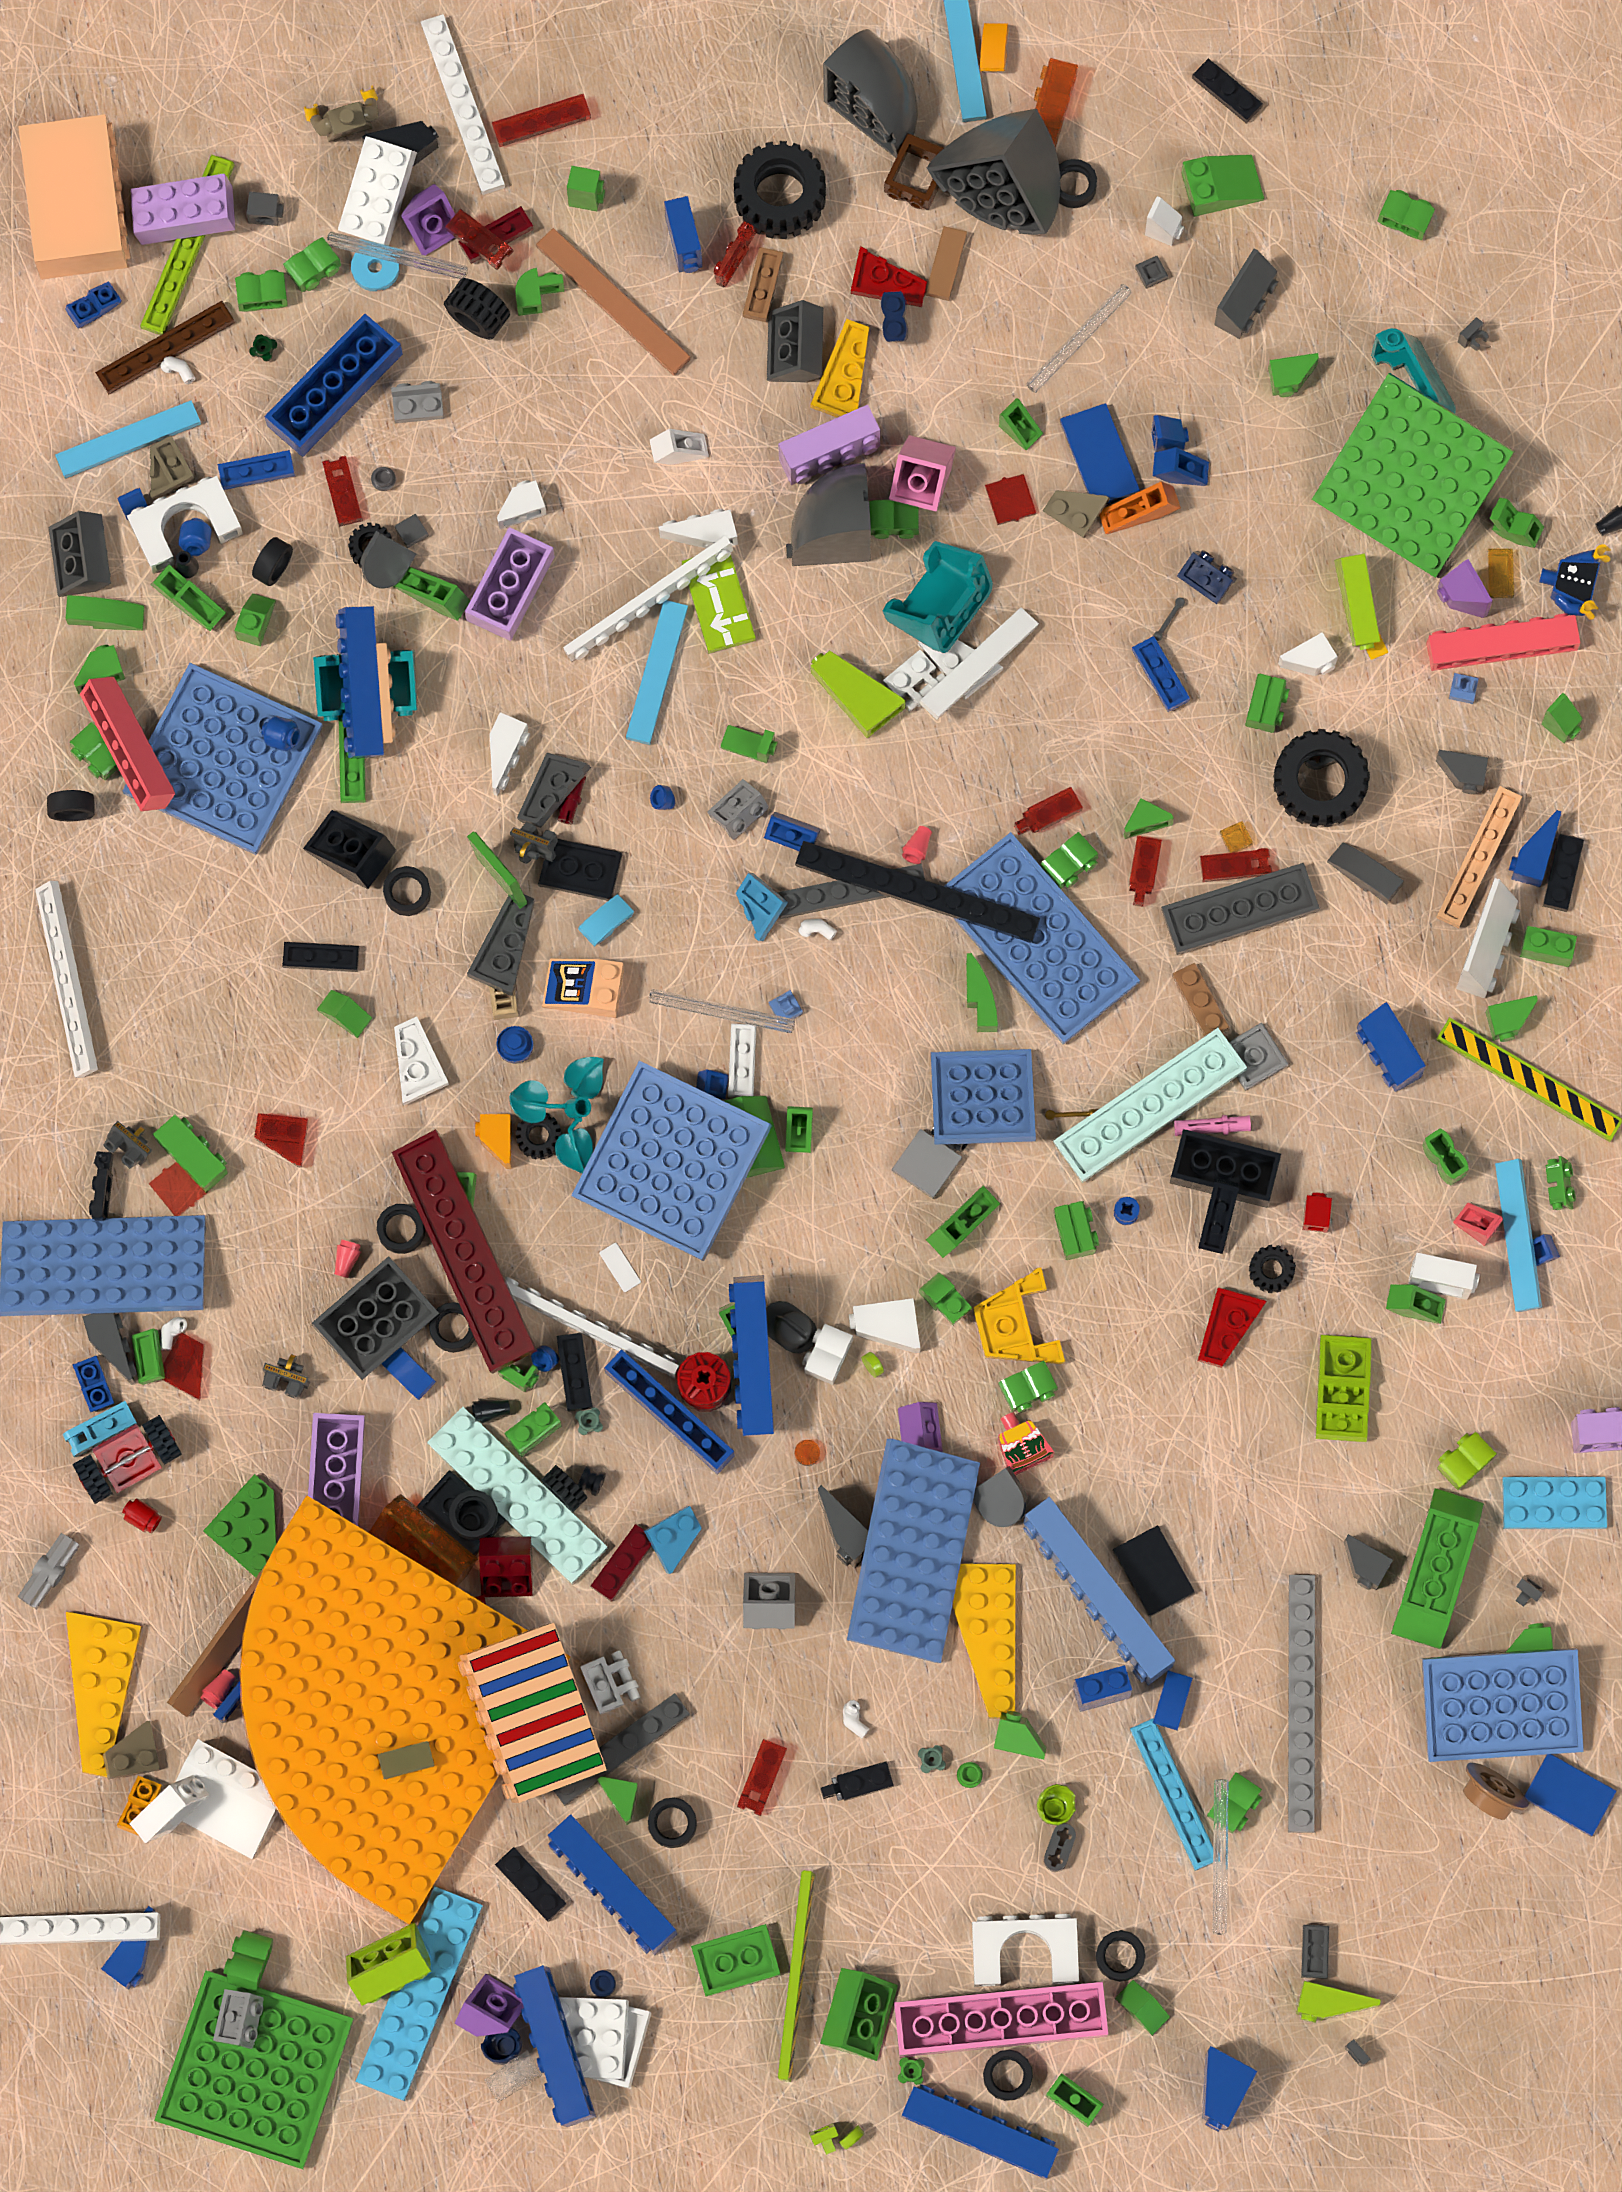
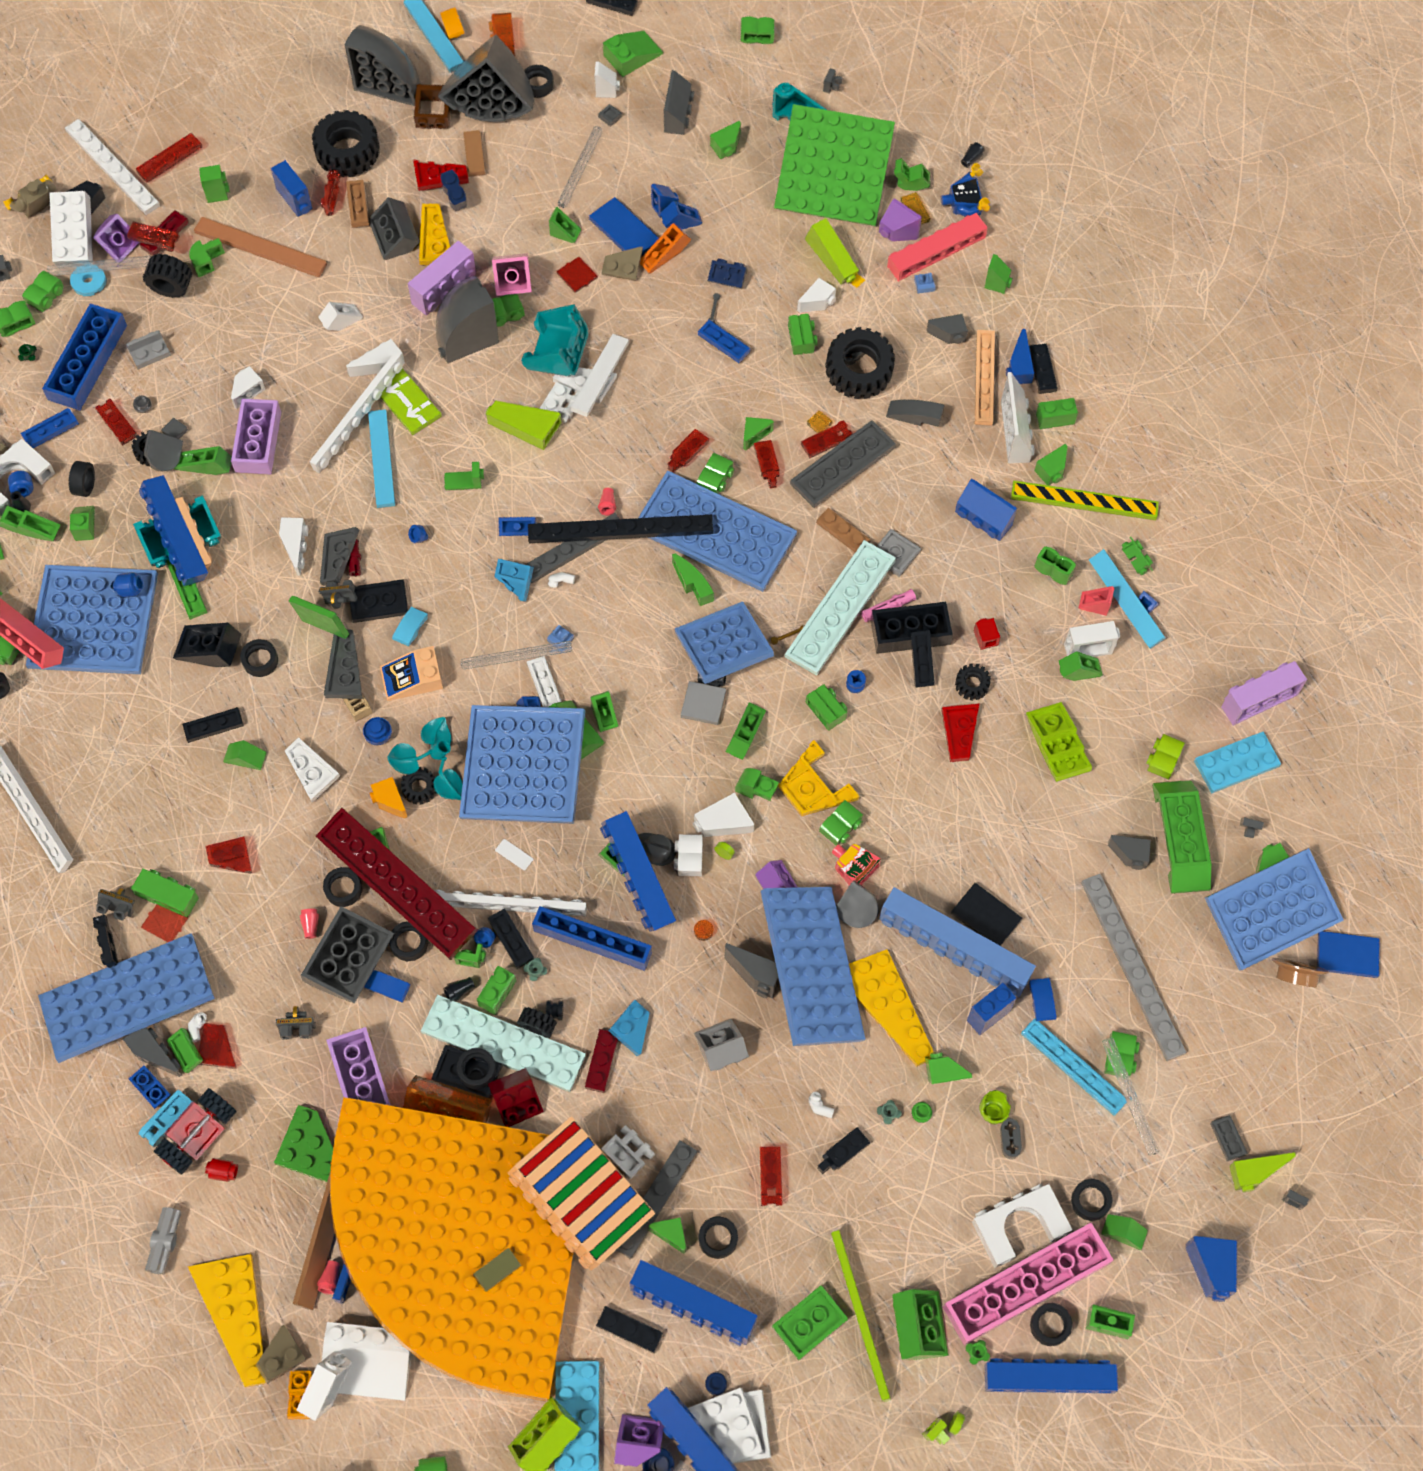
camera: 25 degrees left, 10 degrees down
(704, 1396) = (613, 916): red wheel -> none
(738, 809) = (474, 522): light grey bracket -> none

